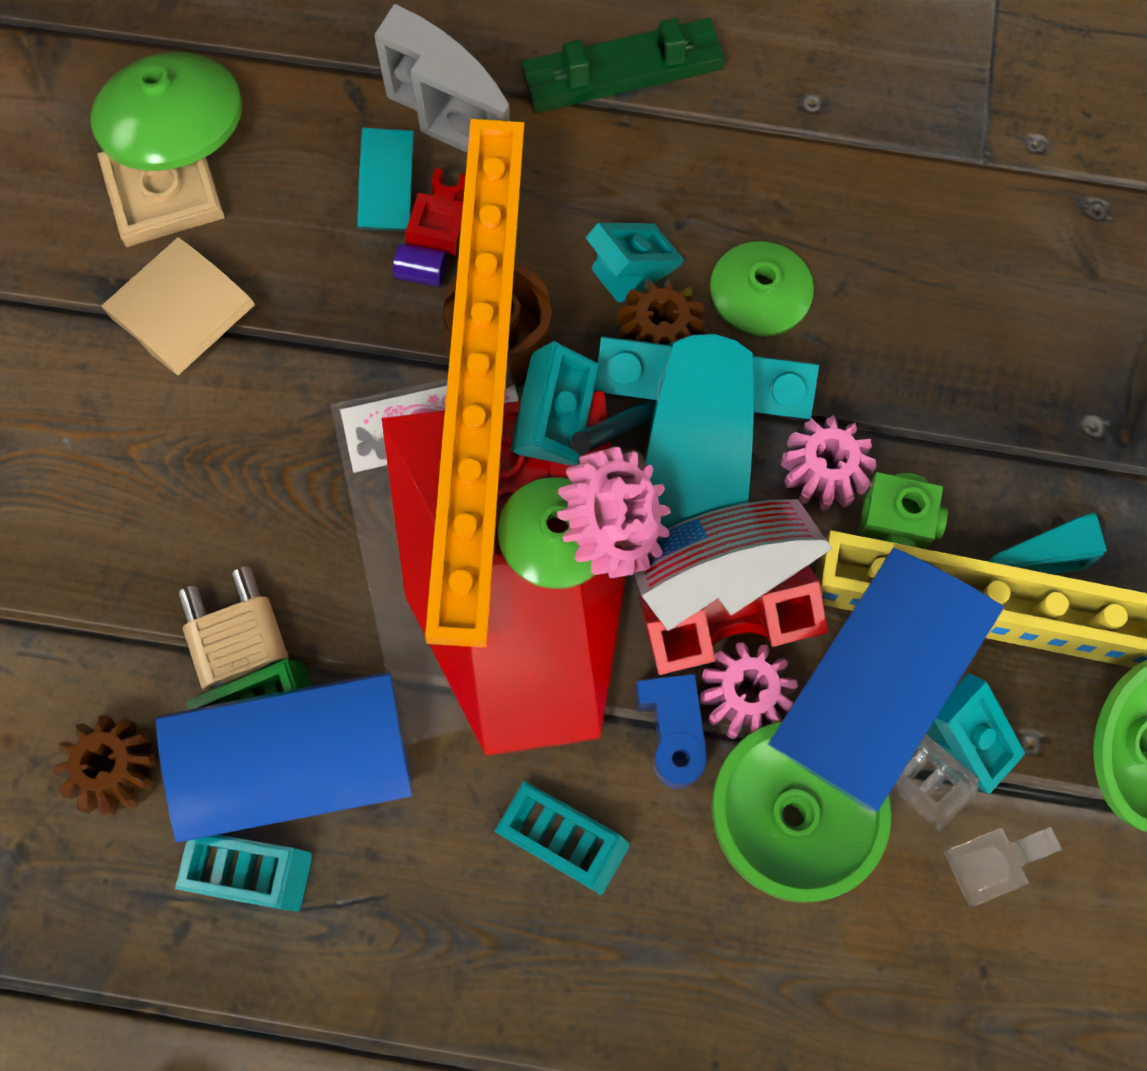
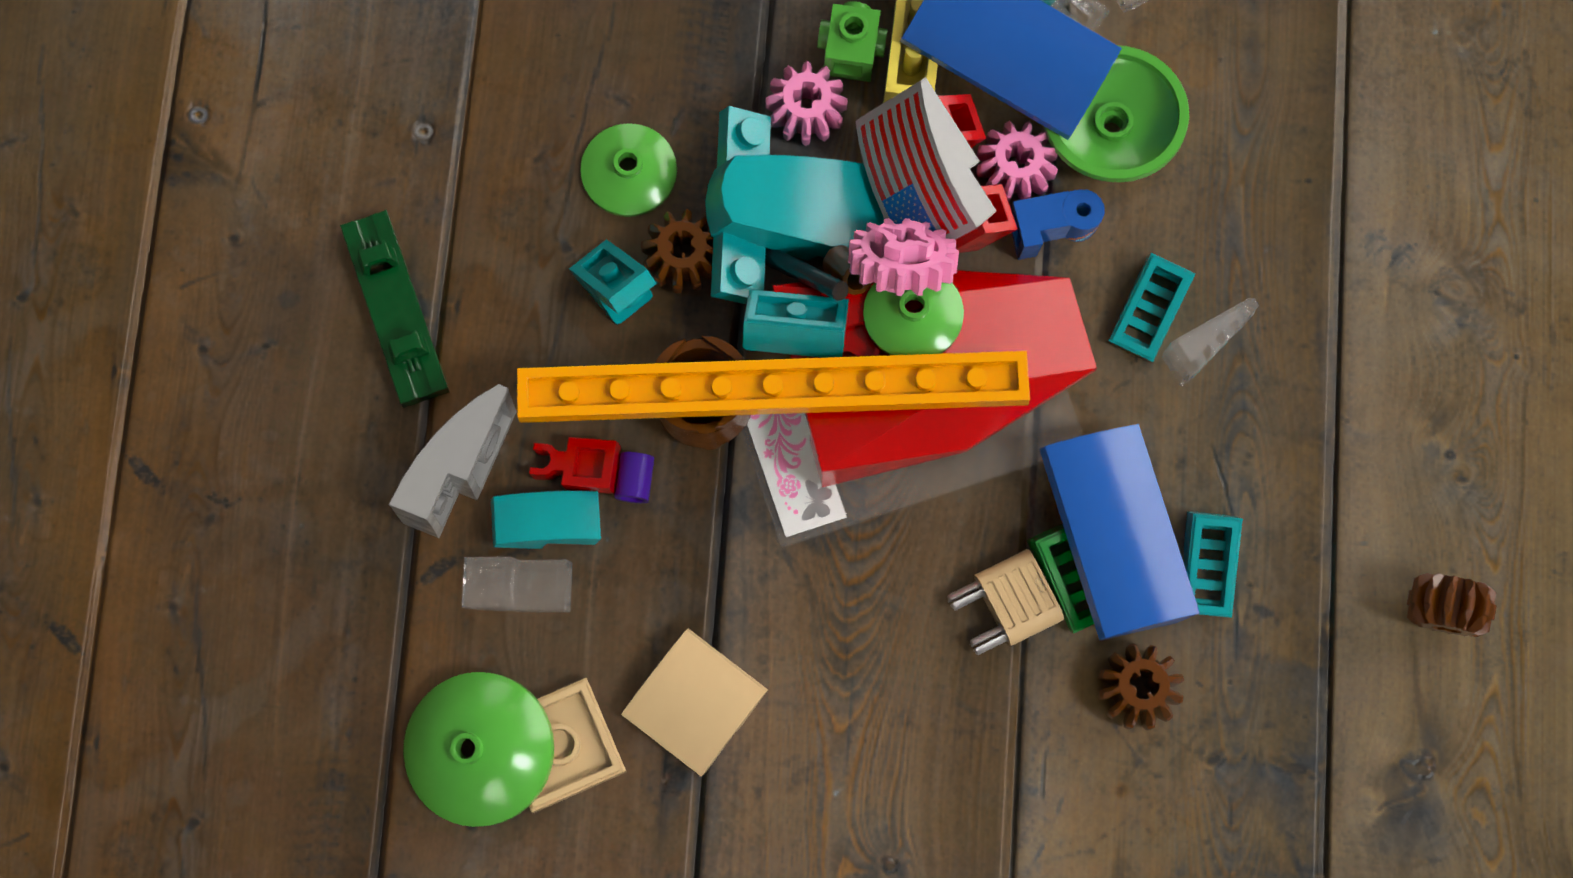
camera: 100 degrees left, 5 degrees up
(326, 156) = (517, 584): none -> clear slope
(502, 887) = (1196, 348): none -> clear slope

